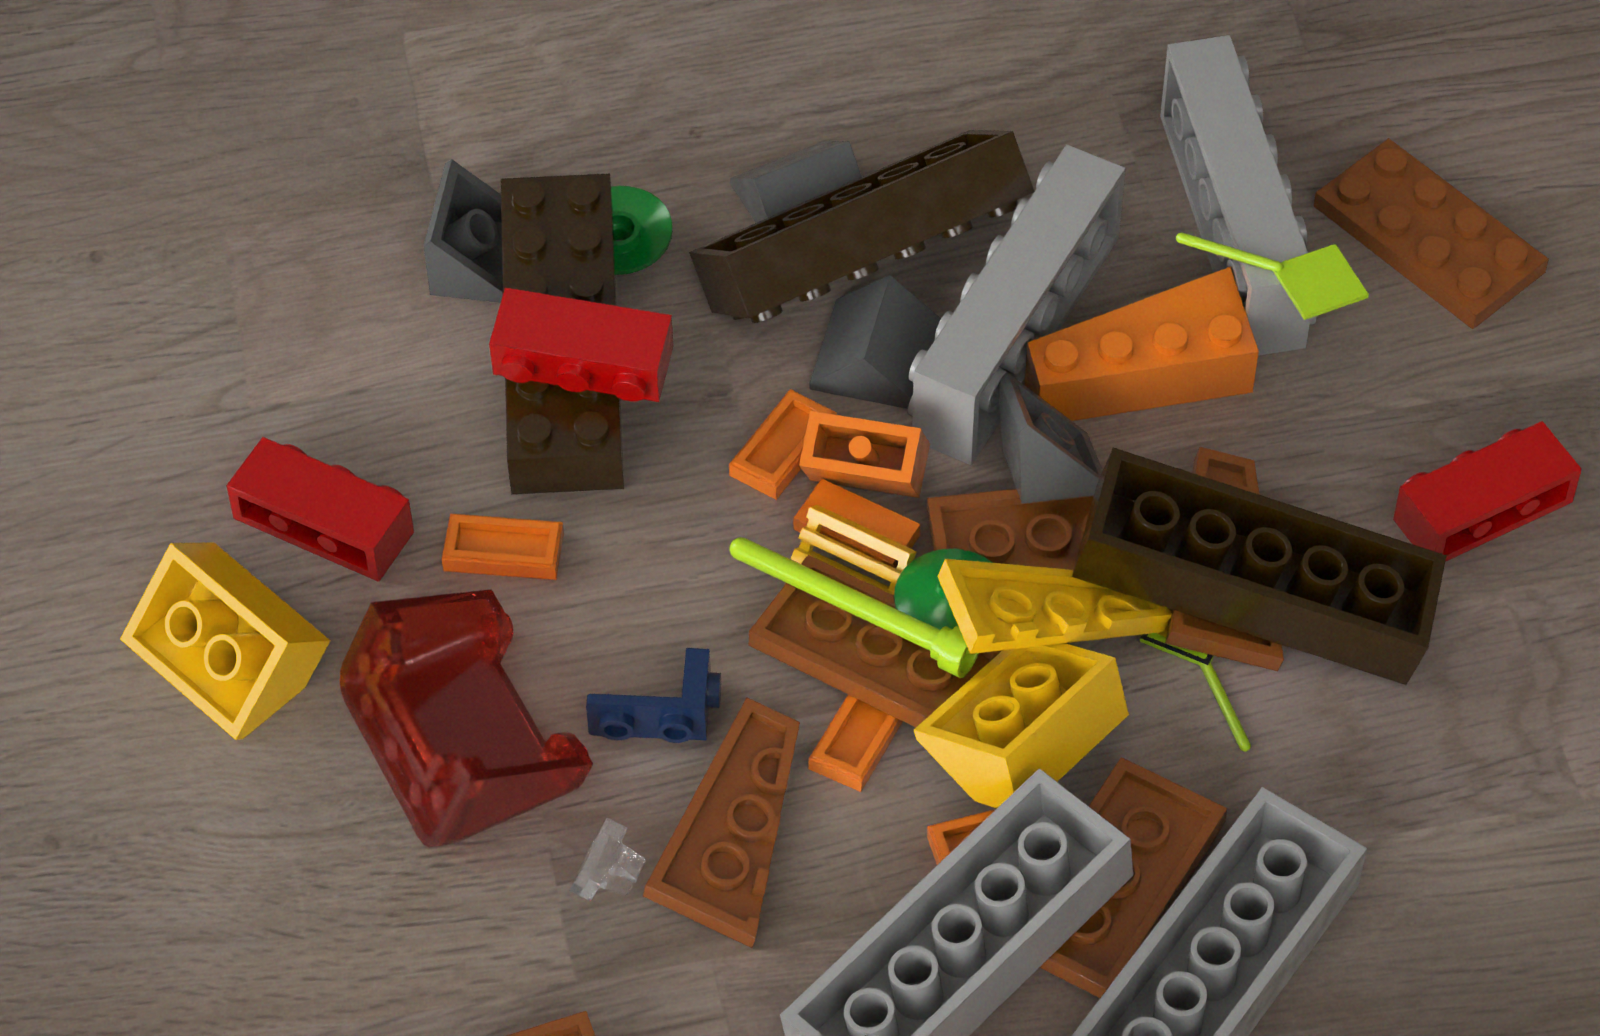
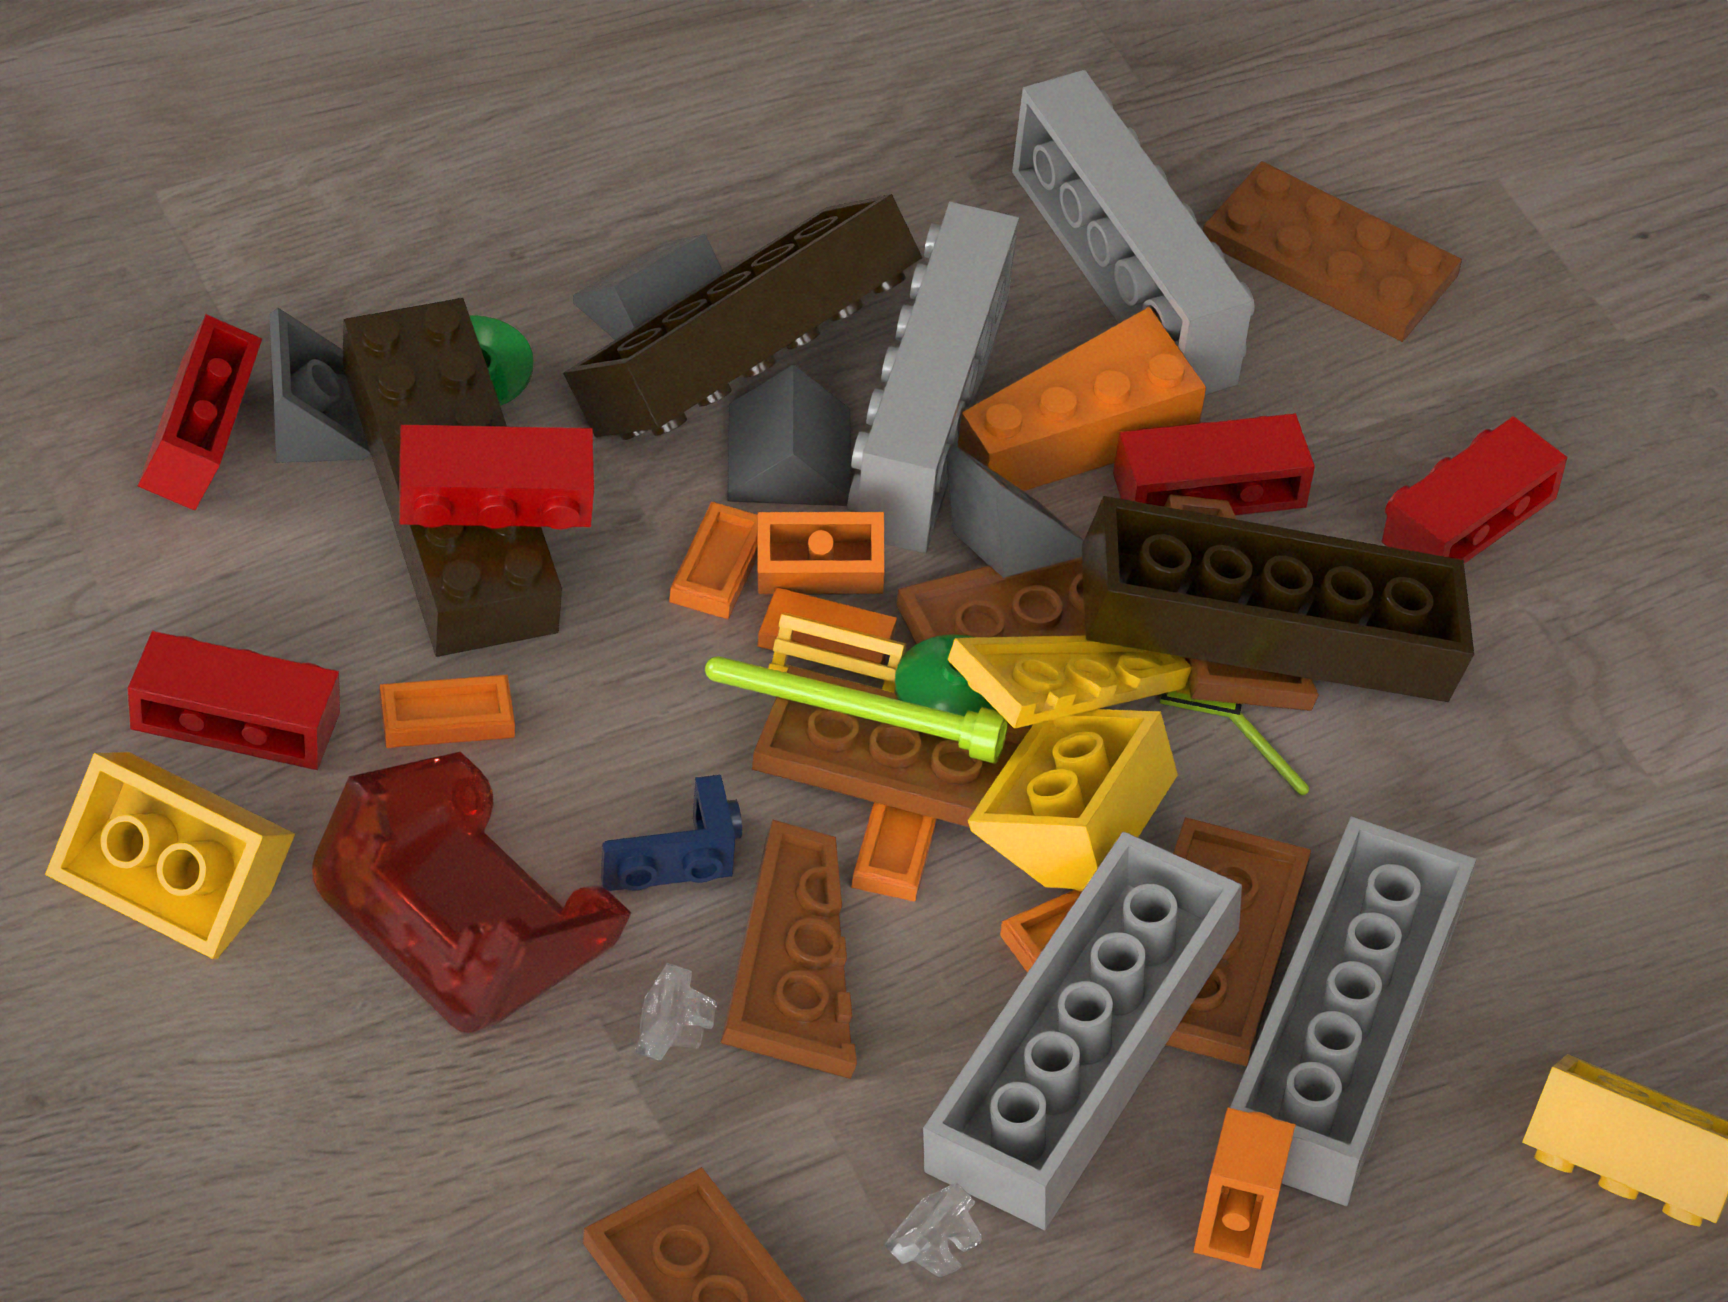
camera: 20 degrees left, 5 degrees down
(367, 242) = (200, 412): none -> red brick
(1274, 425) = (1248, 462): none -> red brick
(1313, 281) = (1252, 302): lime piece -> none

